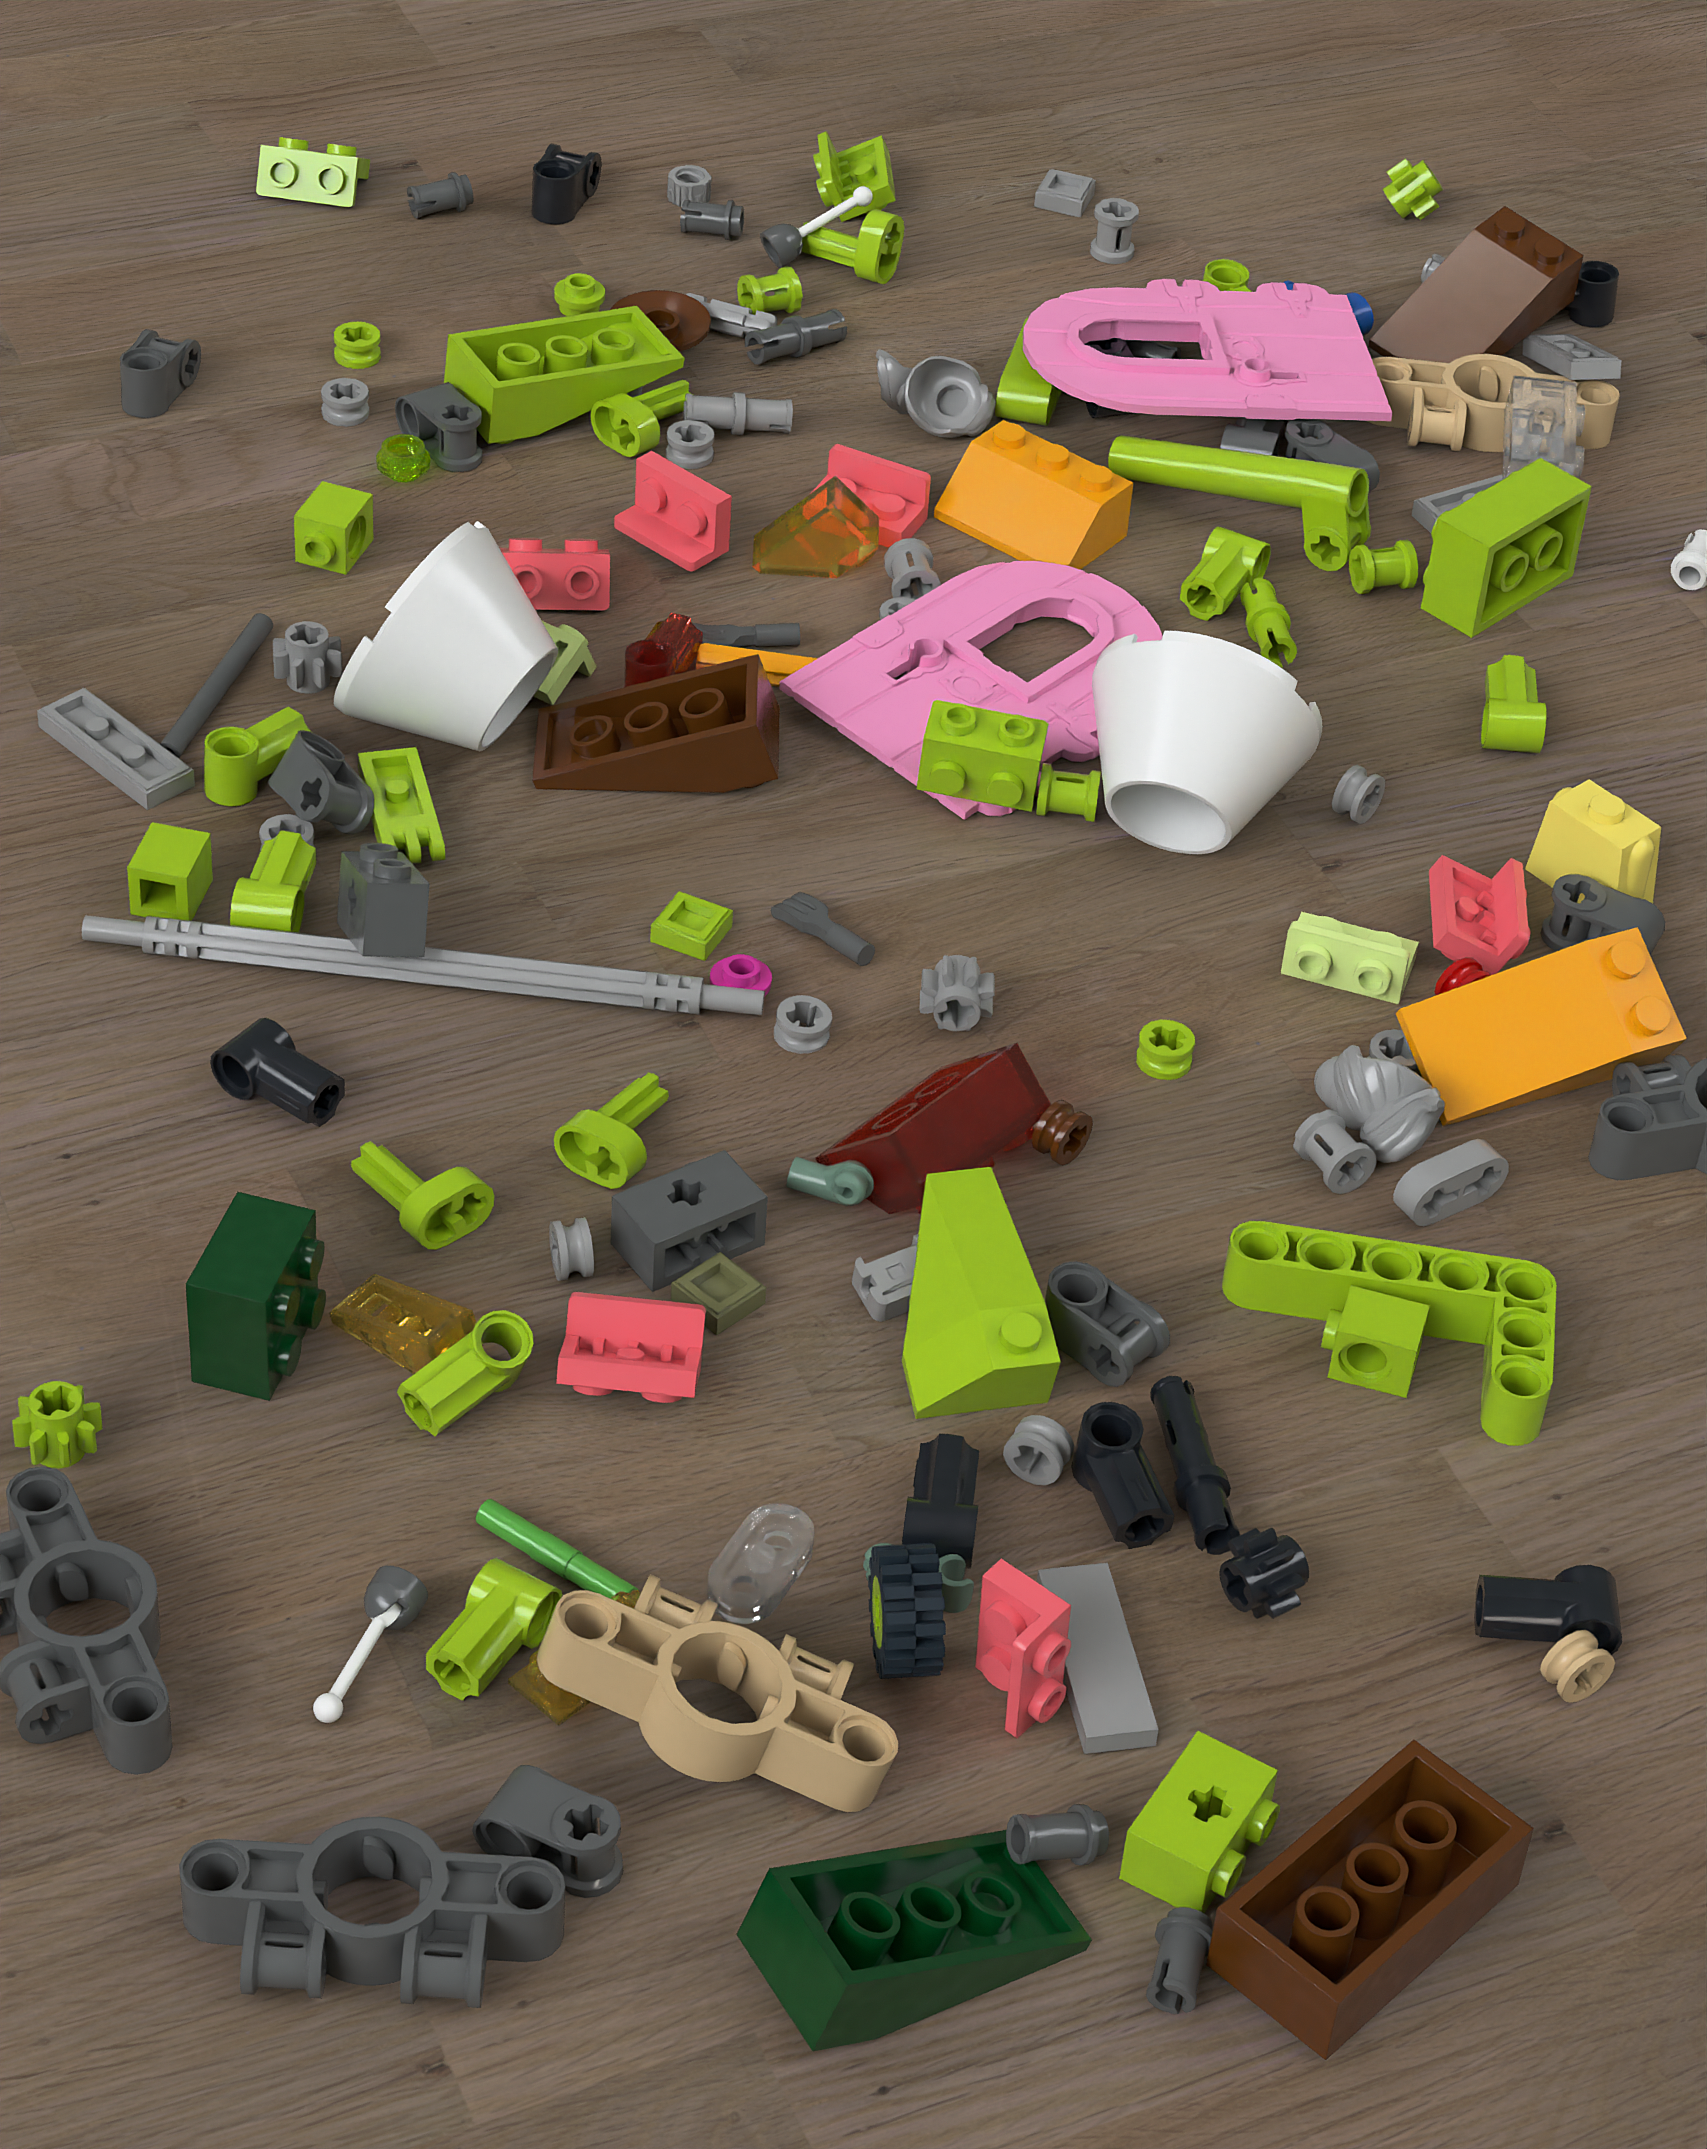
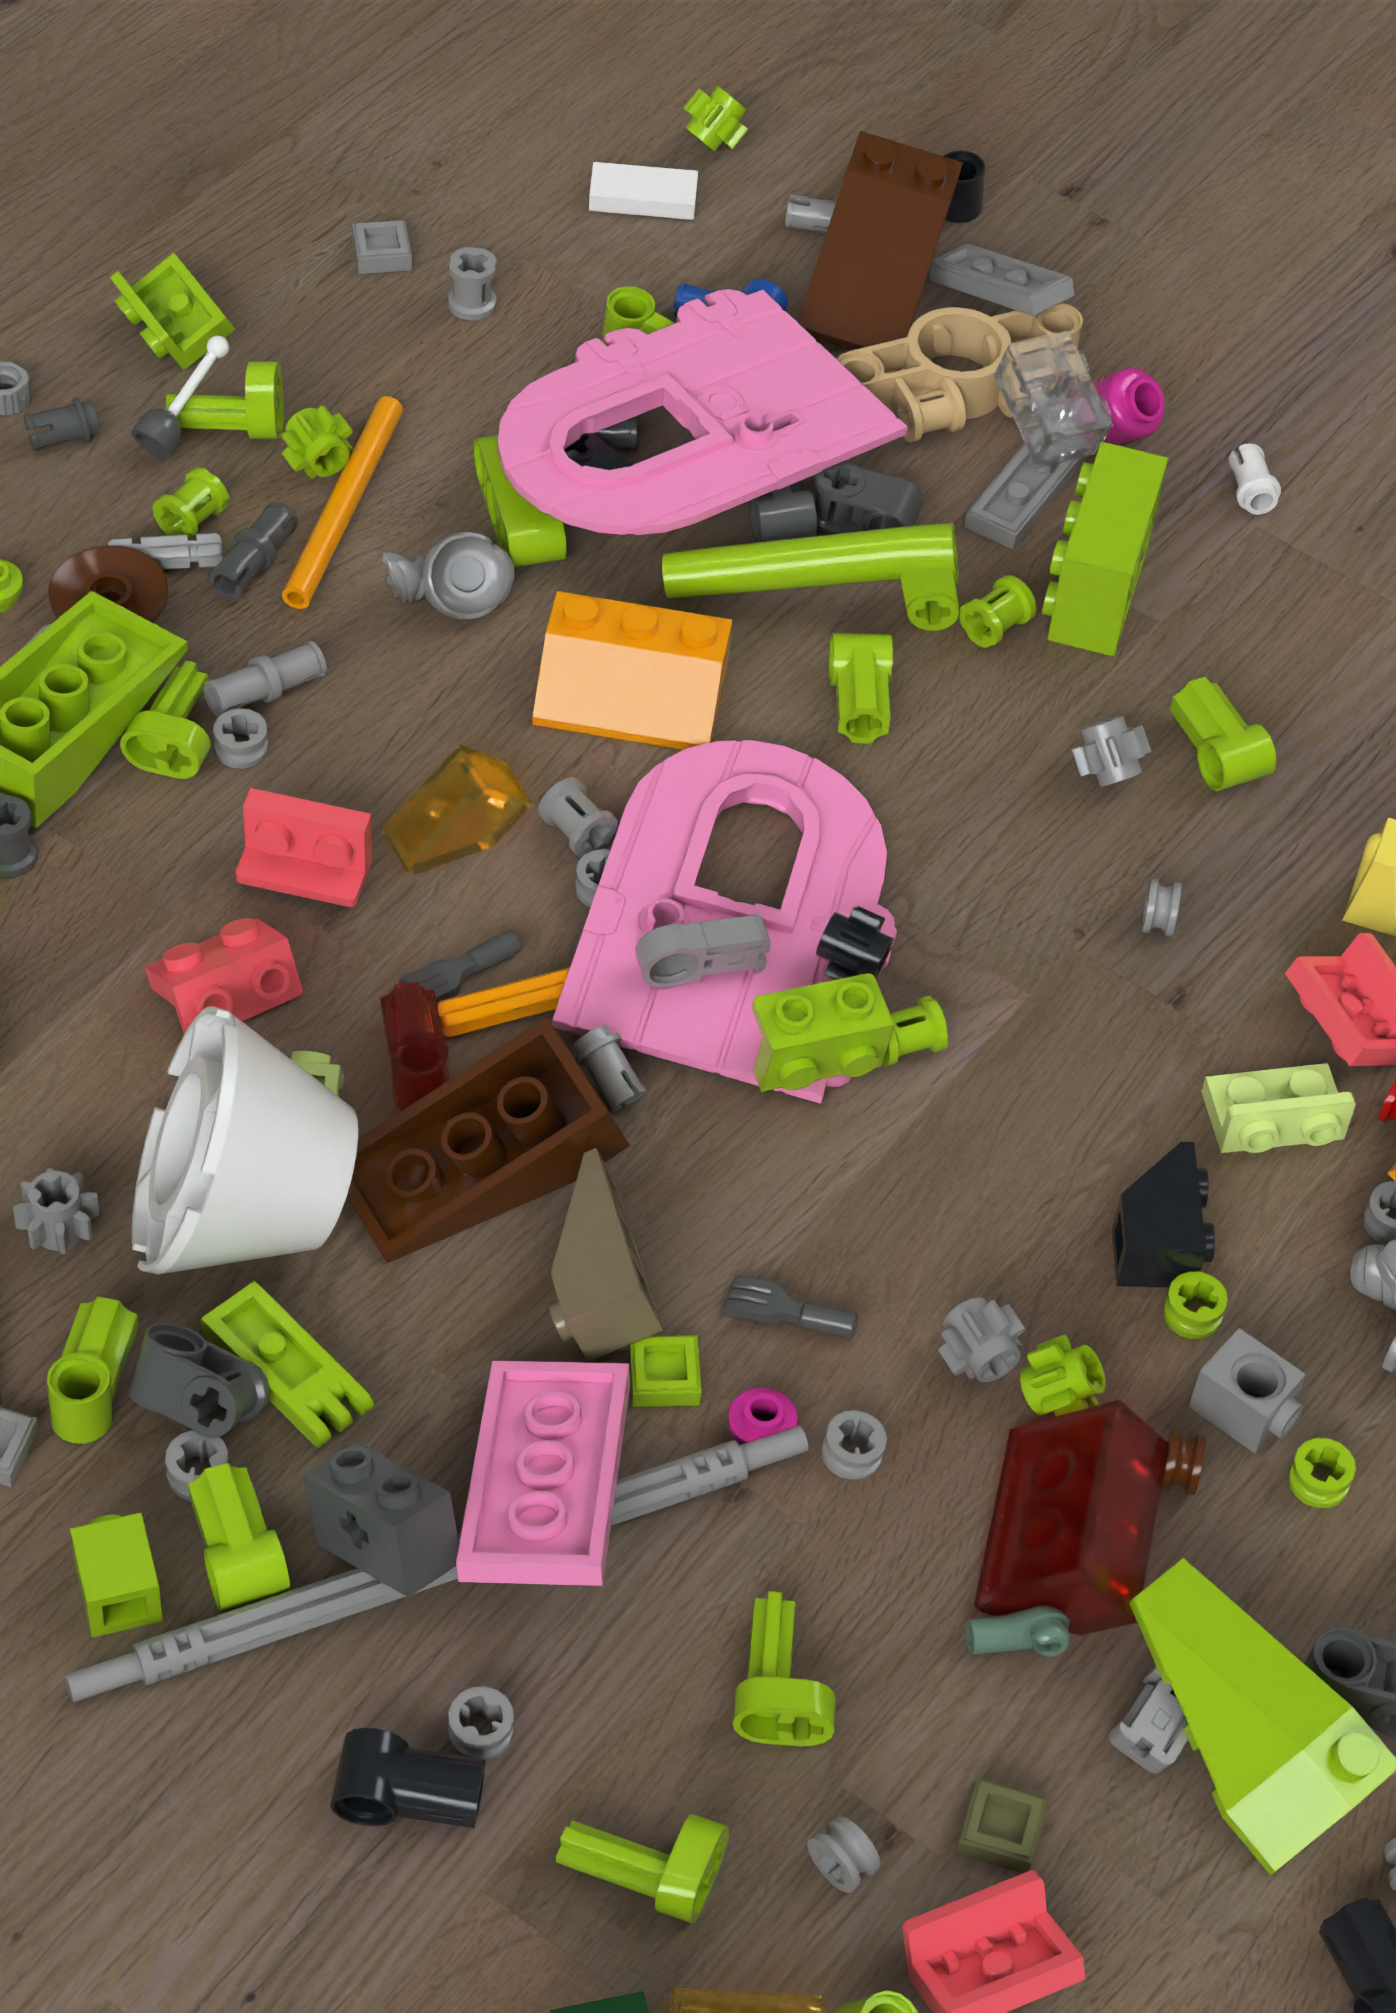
camera: 30 degrees left, 10 degrees up
(366, 1054) = (495, 1710): none -> light grey bush
(530, 929) = (545, 1474): none -> bright pink plate
(688, 834) = (599, 1270): none -> dark tan slope
(688, 1218) = (918, 1794): dark grey brick -> none
(801, 717) = (609, 1067): none -> light grey pin
(888, 488) = (477, 718): coral bracket -> none
(894, 333) = (342, 503): none -> light orange piece
(900, 285) = (317, 442): none -> lime gear
(941, 676) = (702, 950): none -> light grey piece
(1001, 1028) = (1062, 1377): none -> lime gear
(1067, 715) = (854, 944): none -> black gear
(1156, 1110) = (1248, 1367): none -> light grey brick
(1178, 978) = (1162, 1224): none -> black slope
(1180, 1191) = (1329, 1454): none -> lime bush
(1195, 737) = (1024, 945): white cone -> none
(1268, 622) = (941, 728): lime pin -> none
(1316, 222) = (643, 190): none -> white tile
(1401, 680) = (1111, 750): none -> light grey gear
(1614, 468) = (1134, 404): none -> dark pink head

